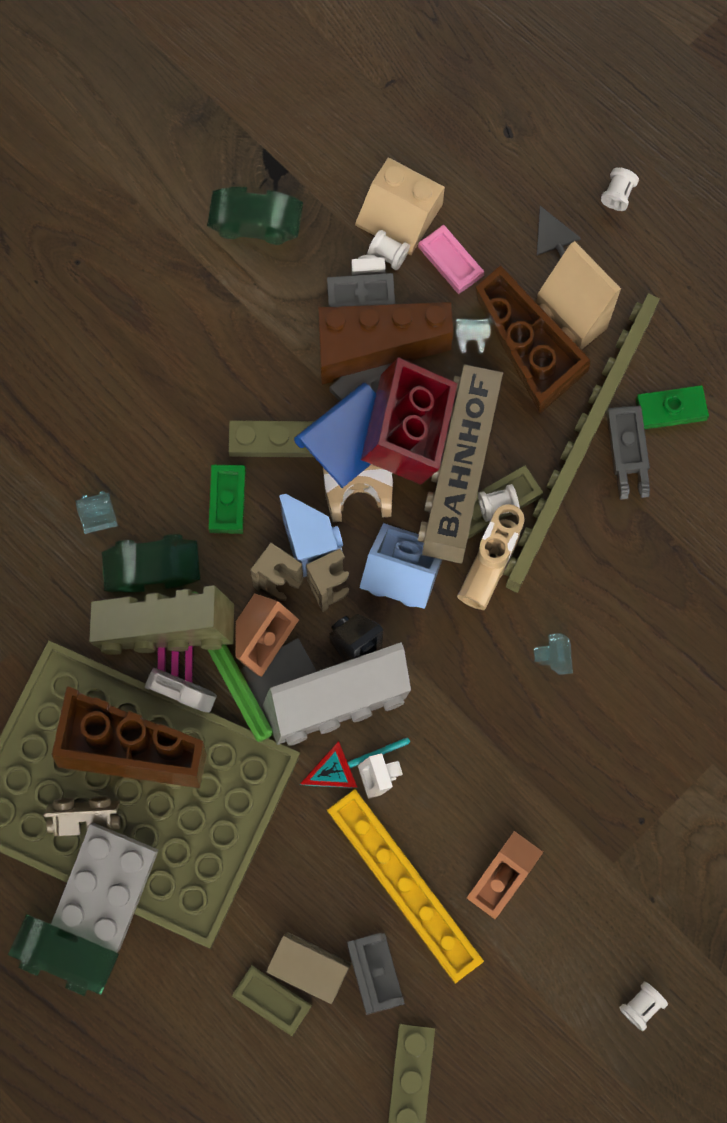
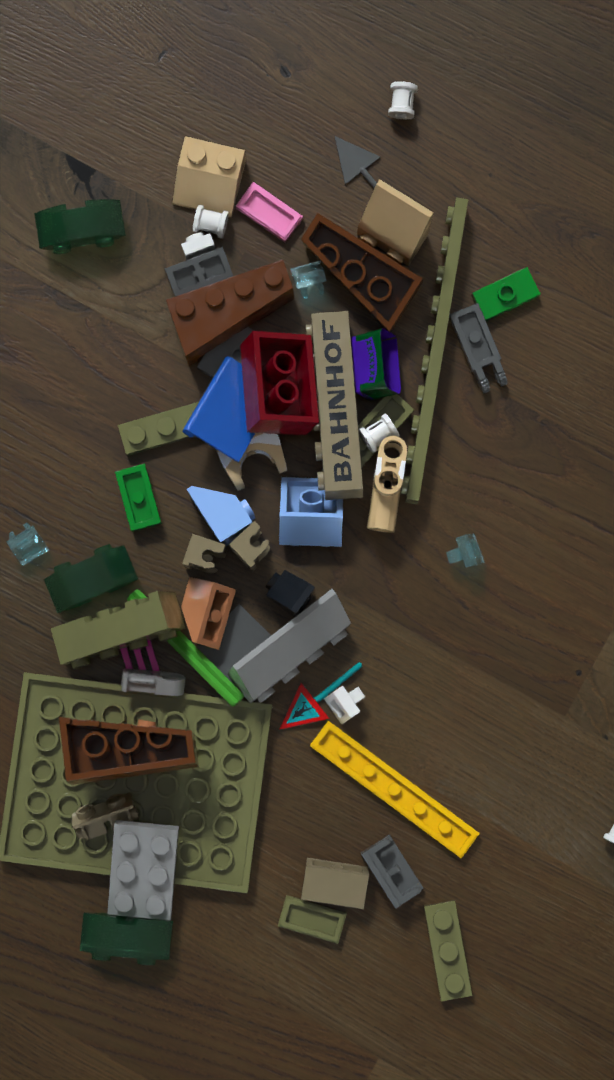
camera: 15 degrees left, 10 degrees up
(505, 875) = (477, 755): nougat slope -> none
(514, 436) = (375, 364): none -> dark purple piece

